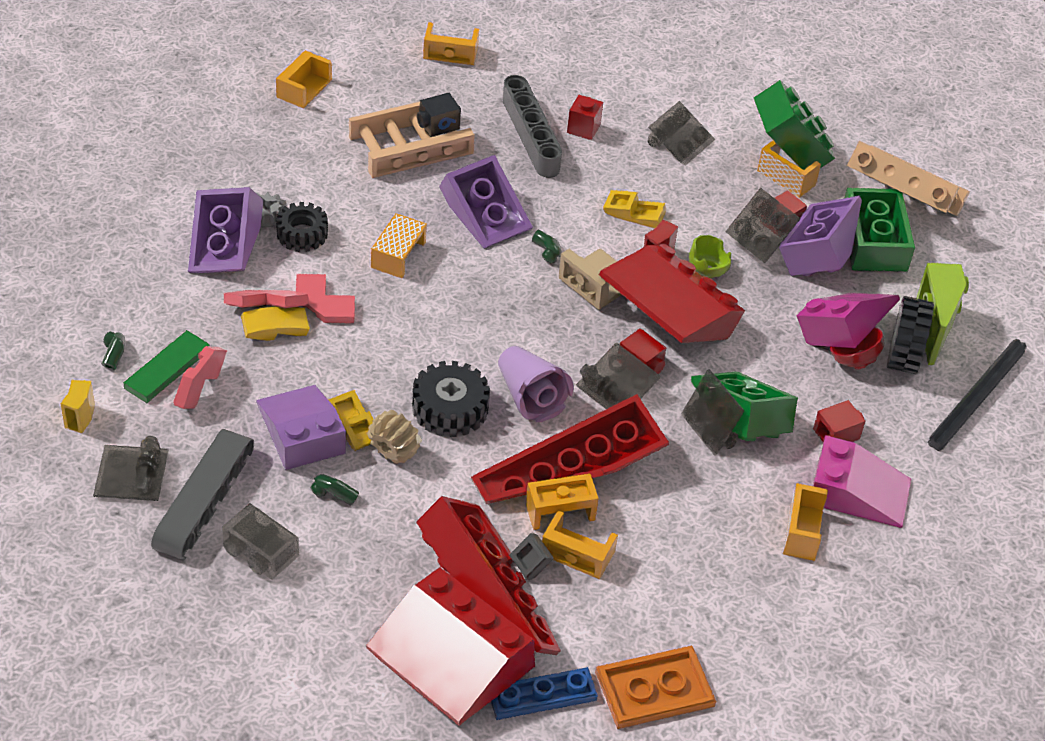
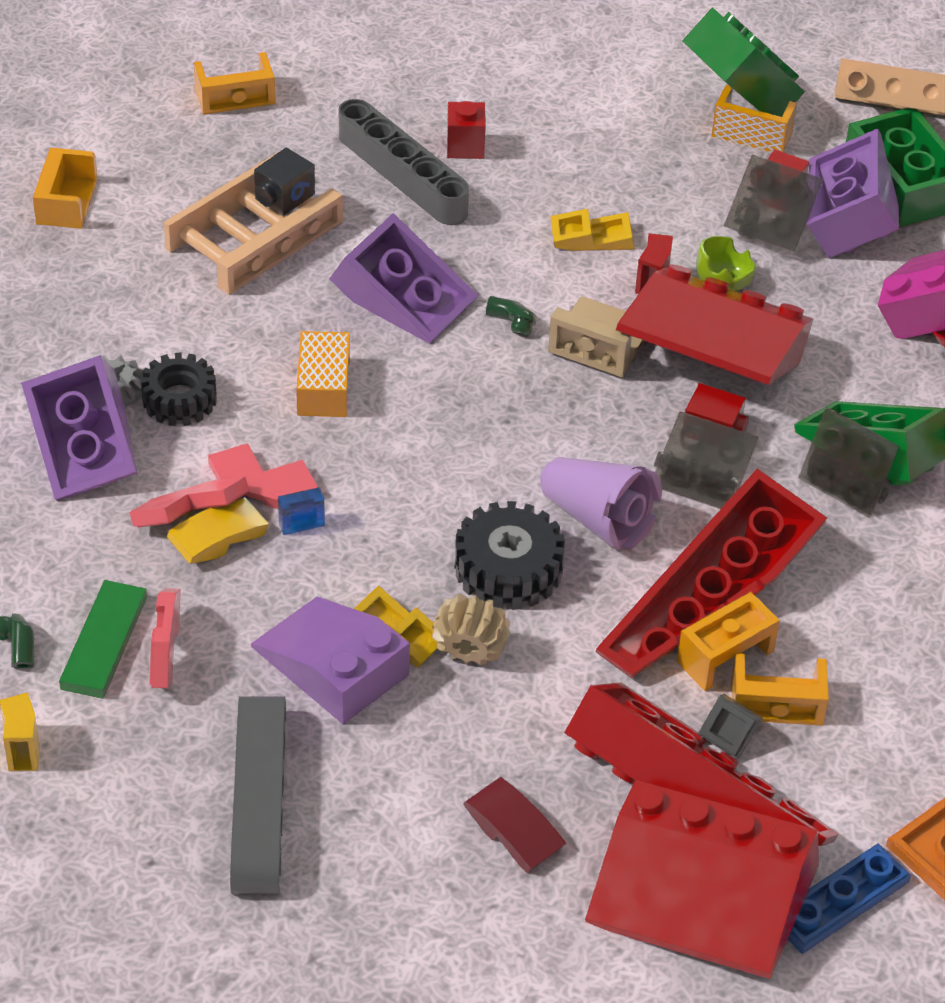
camera: 20 degrees left, 0 degrees up
(132, 471) = (140, 798): clear smoke hinge -> none
(260, 541) = (373, 831): clear smoke brick -> none
(333, 327) = (301, 511): none -> clear blue tile
(334, 486) = (428, 723): dark green arm -> none
(354, 569) = (516, 822): none -> dark red slope
(680, 133) = (594, 116): clear smoke hinge -> none

